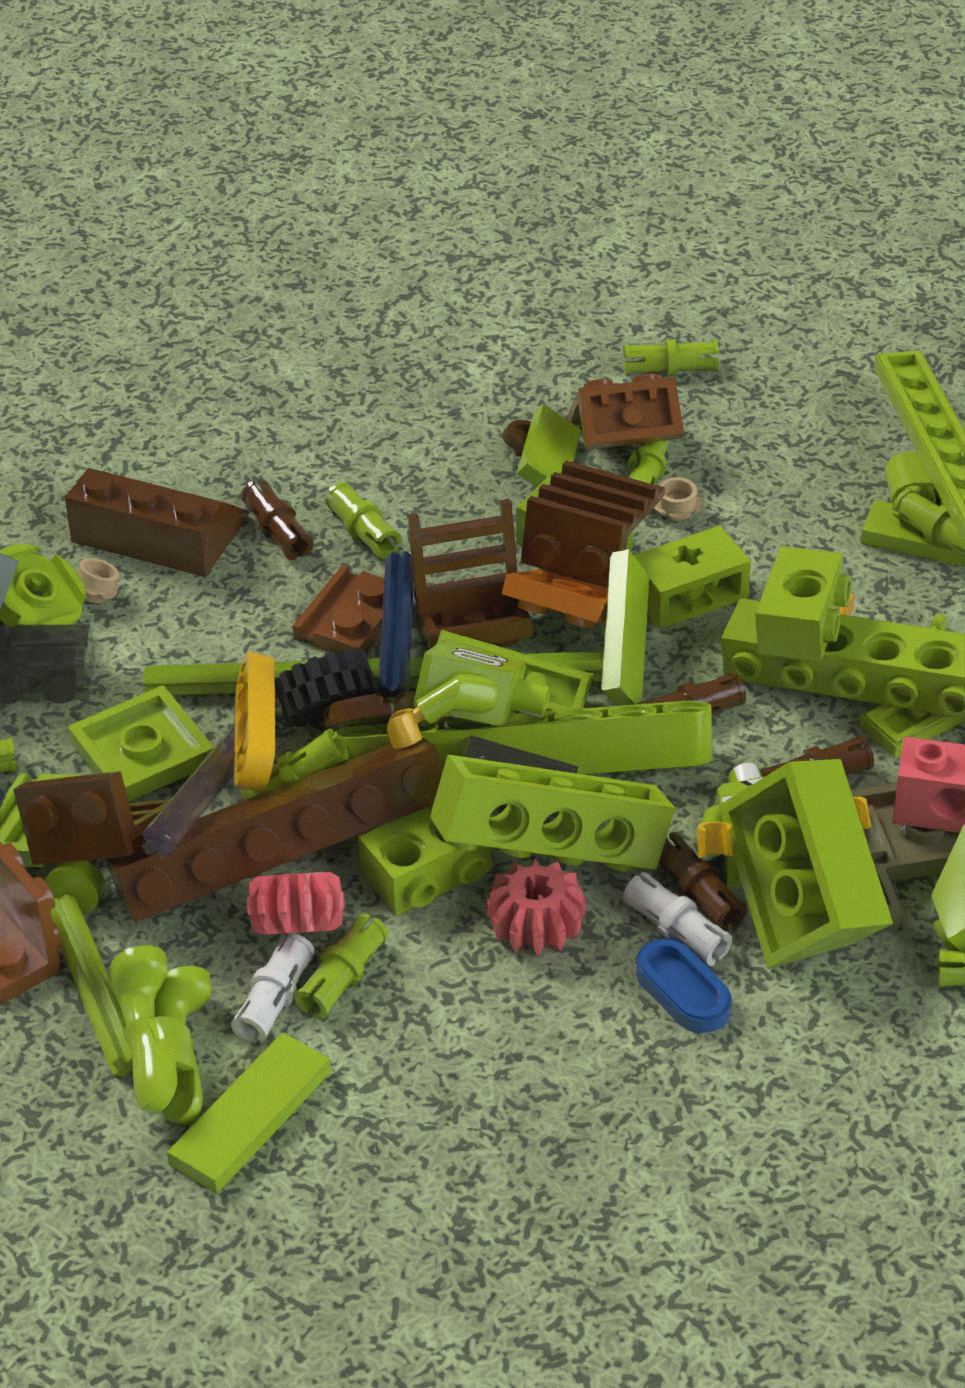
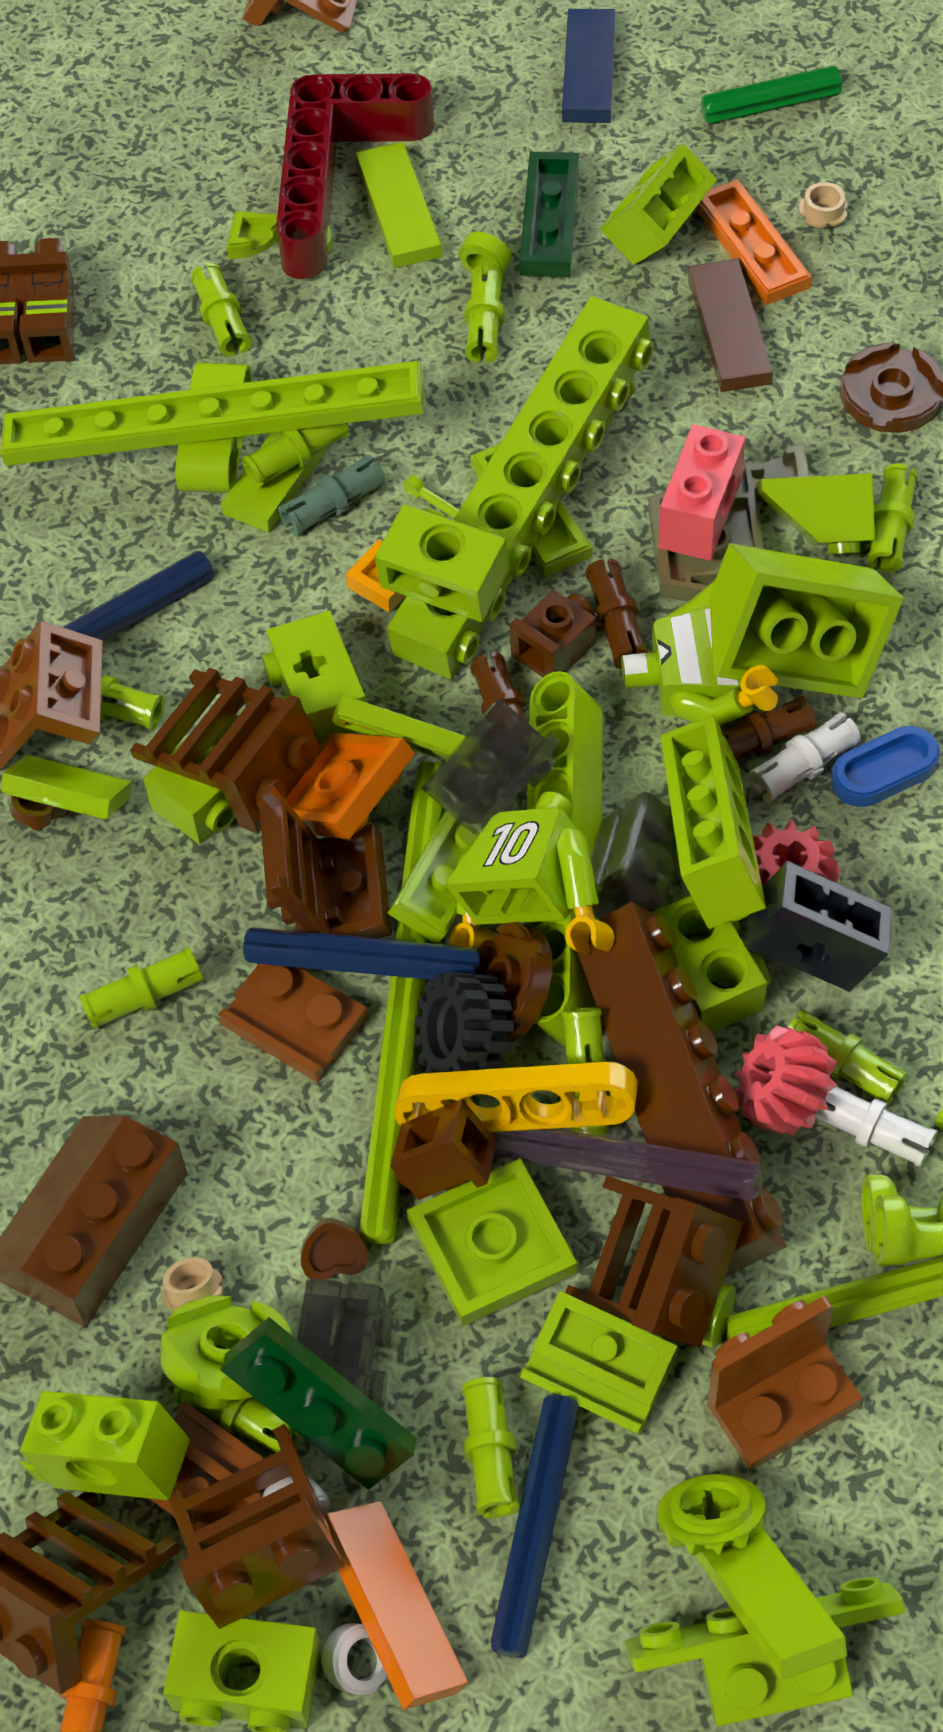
camera: 80 degrees left, 15 degrees up
(132, 655) = (333, 1249): none -> reddish brown piece
(209, 692) = (443, 1150): none -> reddish brown brick
(277, 519) = (114, 1082): reddish brown pin -> none
(456, 909) = (820, 927): none -> black brick
(588, 665) = (491, 767): none -> clear smoke bracket
(679, 499) = (172, 666): tan plate -> none
(746, 464) = (144, 597): none -> dark blue axle
(776, 723) = (553, 633): none -> reddish brown brick
(907, 568) = (331, 495): none -> sand green pin

